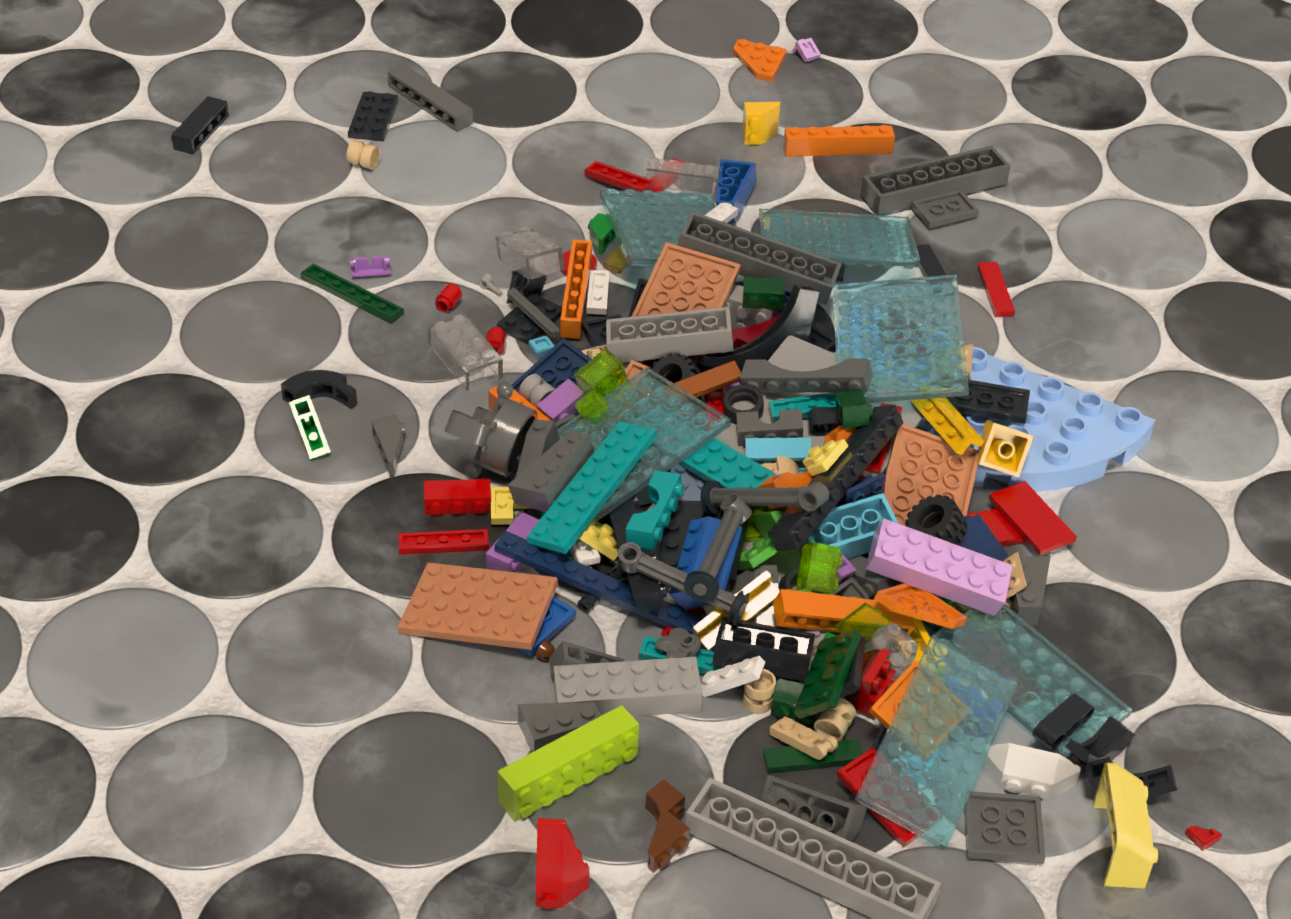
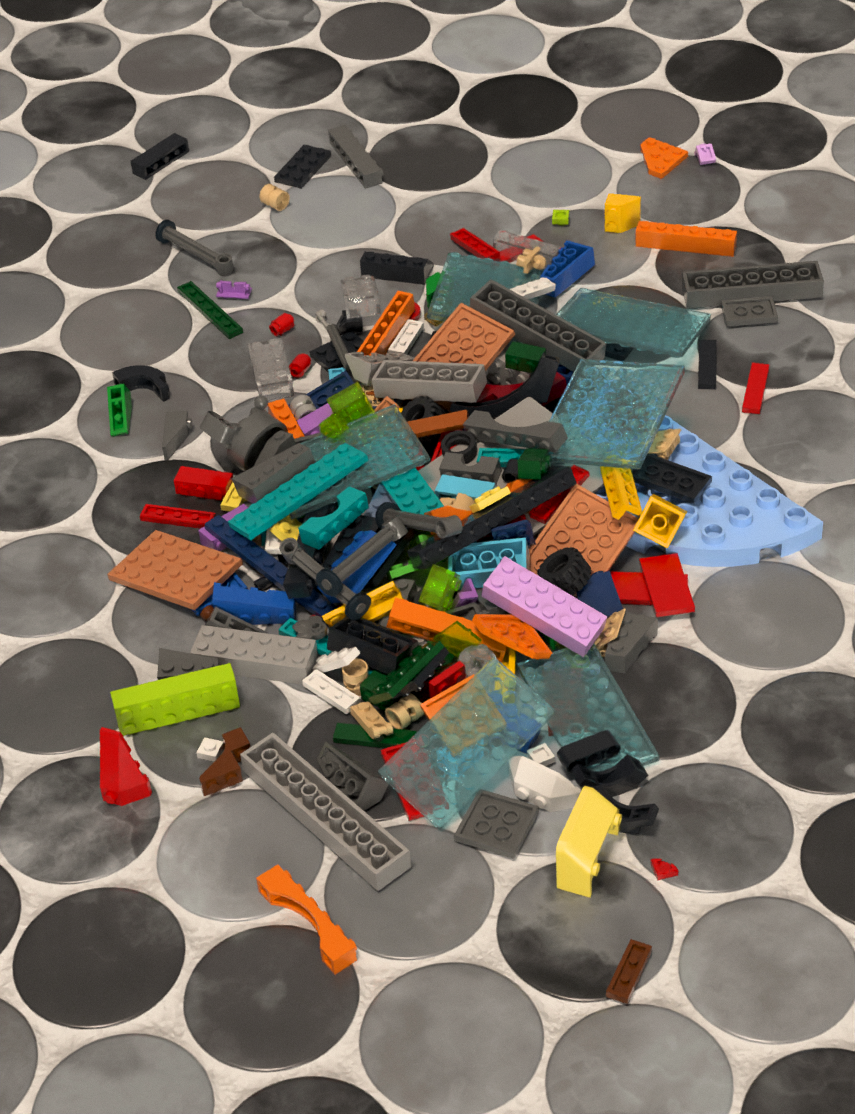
camera: 25 degrees right, 0 degrees up
(341, 237) = (167, 232): none -> dark grey piece
(544, 215) = (396, 267): none -> black slope
(589, 329) = (365, 366): none -> light grey wedge
(599, 629) = (254, 605): none -> blue wedge
(632, 814) = (210, 749): none -> white plate
(692, 135) = (560, 217): none -> lime plate
(694, 185) = (530, 260): none -> tan hips
(737, 713) = (331, 691): none -> white plate
(1008, 734) = (541, 755): none -> white plate

